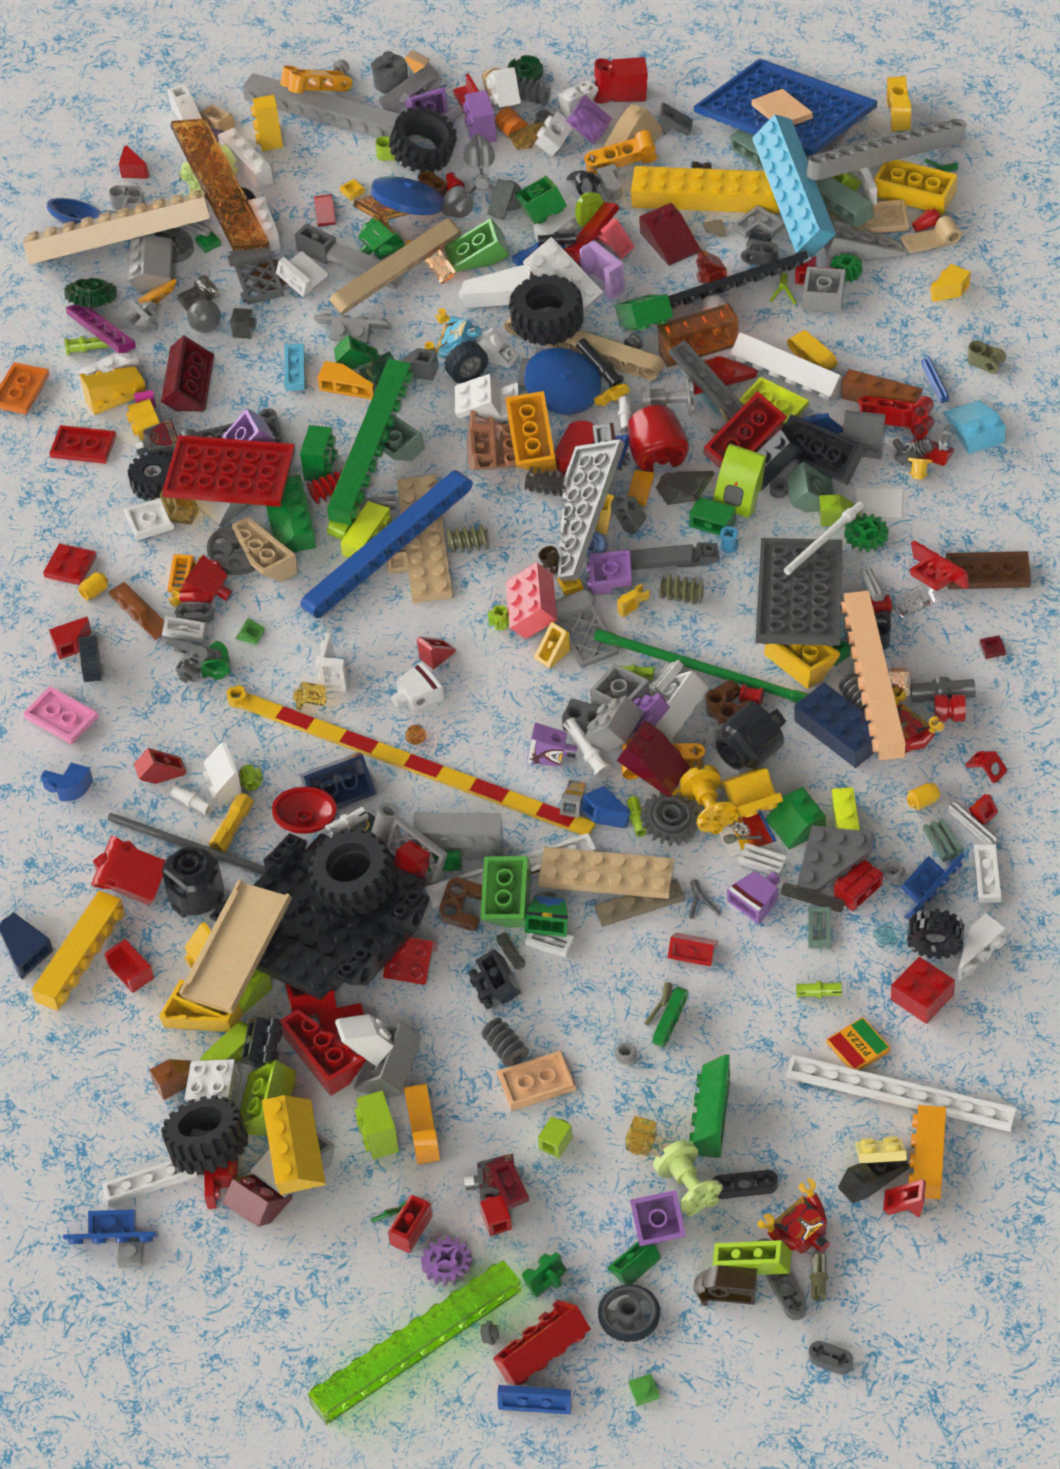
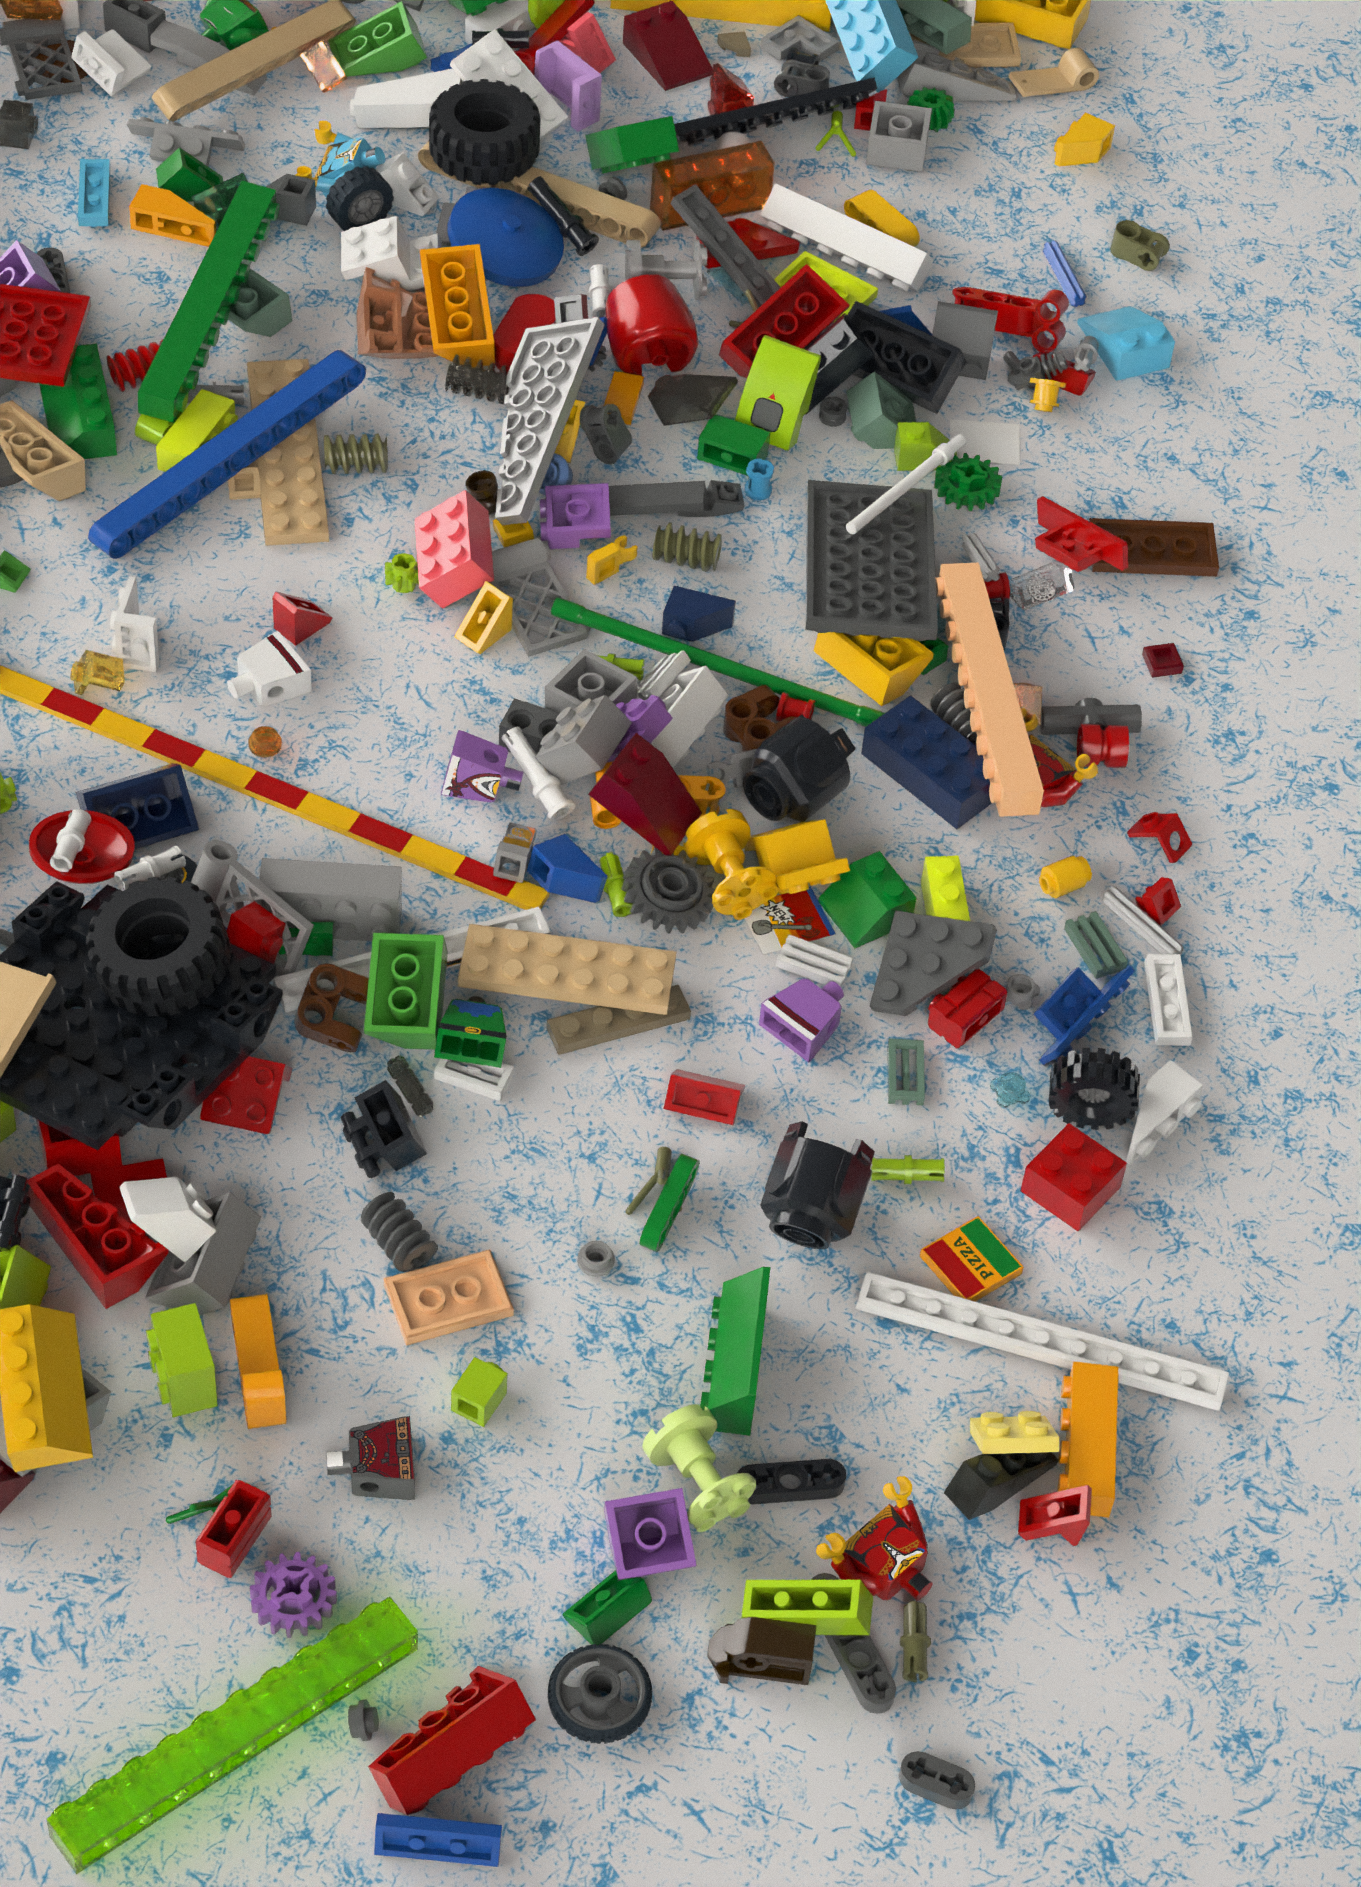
camera: 10 degrees left, 0 degrees up
(297, 807) = (70, 840): none -> white pin
(318, 452) = (126, 313): green brick -> none
(495, 1215) = (377, 1518): red brick -> none
(509, 1184) = (403, 1468): dark red plate -> none
(546, 1275) = (461, 1624): green hips -> none
(612, 393) = (580, 261): yellow plate -> none
(641, 1136) = (621, 1395): clear yellow brick -> none
(643, 1389) = (623, 1827): bright green plate -> none
(687, 634) = (696, 614): none -> dark blue slope
(698, 895) = (713, 1013): dark grey plant -> none
(759, 1005) = (815, 1189): none -> black piece
(812, 897) = (894, 1023): clear smoke axle -> none
(859, 384) = (953, 270): dark orange brick -> none
(926, 220) = (1046, 53): red cone -> none

